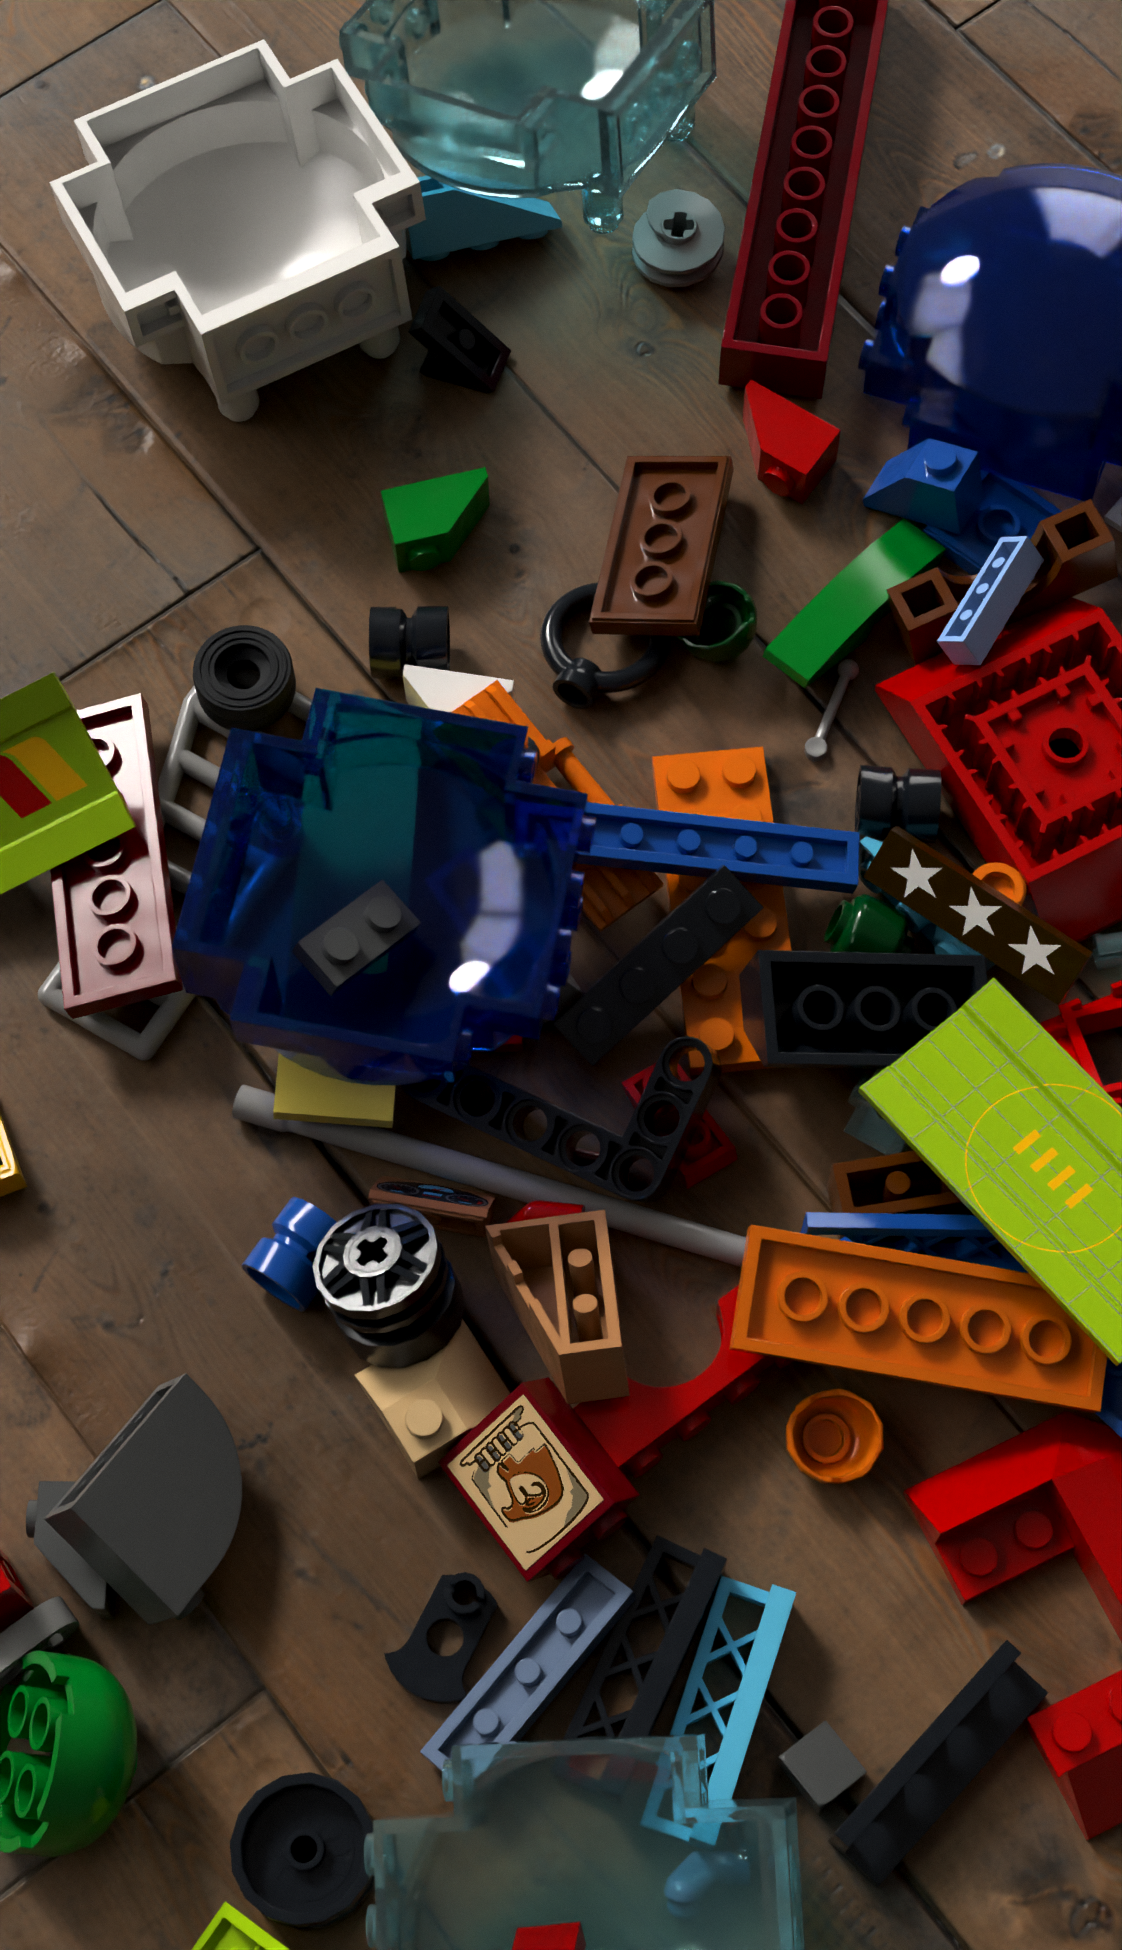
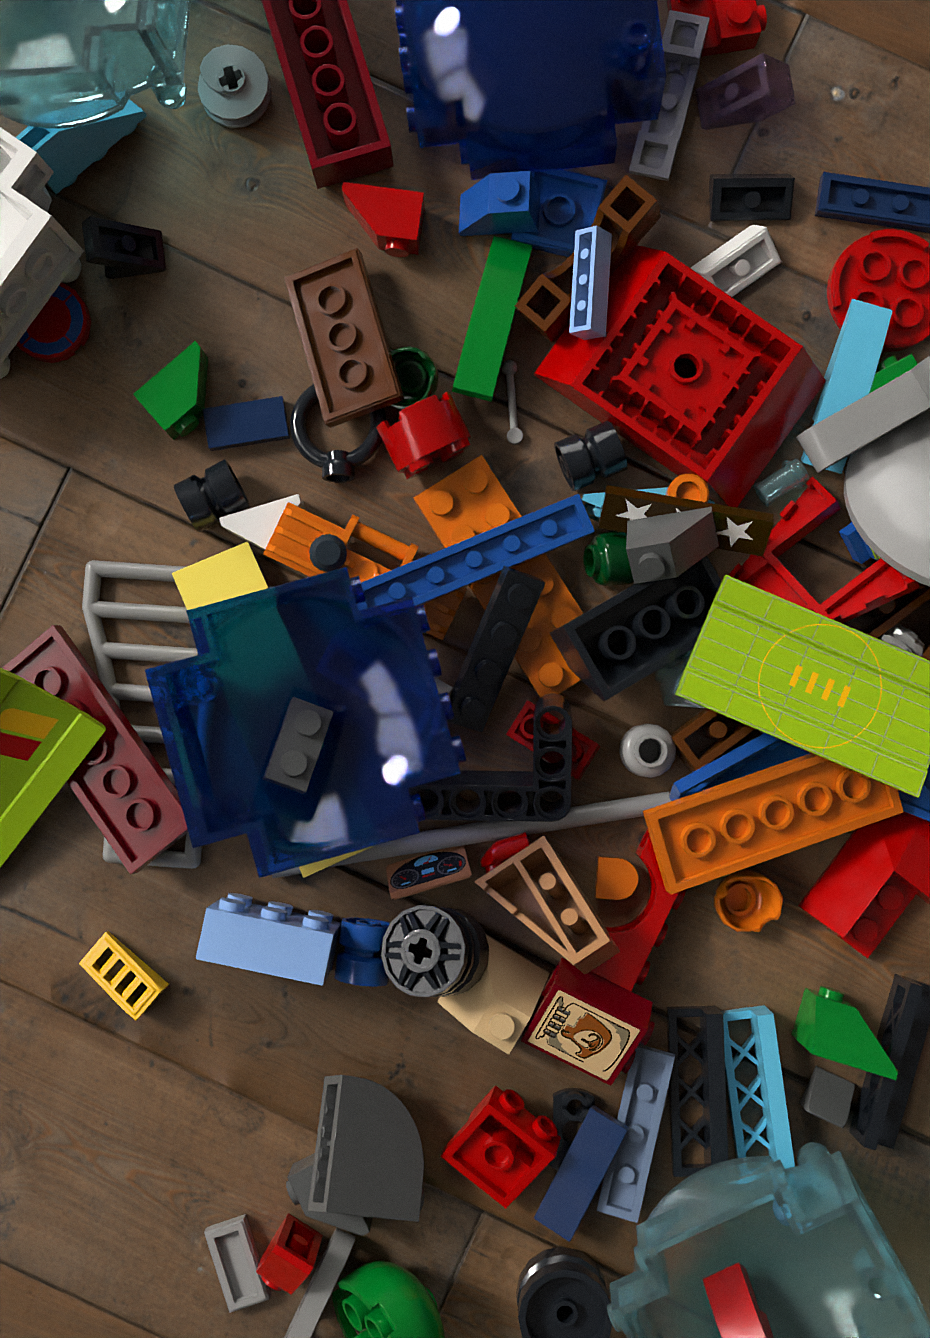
camera: 25 degrees left, 20 degrees up
(188, 1169) = (269, 939): none -> light blue brick
(238, 649) = (92, 578): black tyre -> none
(331, 392) = (58, 327): none -> tile
(339, 1597) = (502, 1146): none -> red plate
(426, 1687) = (581, 1173): none -> dark blue tile
(495, 590) = (246, 423): none -> dark blue tile
(671, 1331) = (614, 878): none -> orange tile
(703, 685) = (424, 433): none -> red brick
(794, 1179) = (647, 750): none -> light grey head
(877, 1670) = (838, 1032): none -> green slope
(944, 925) = (669, 543): none -> dark grey slope

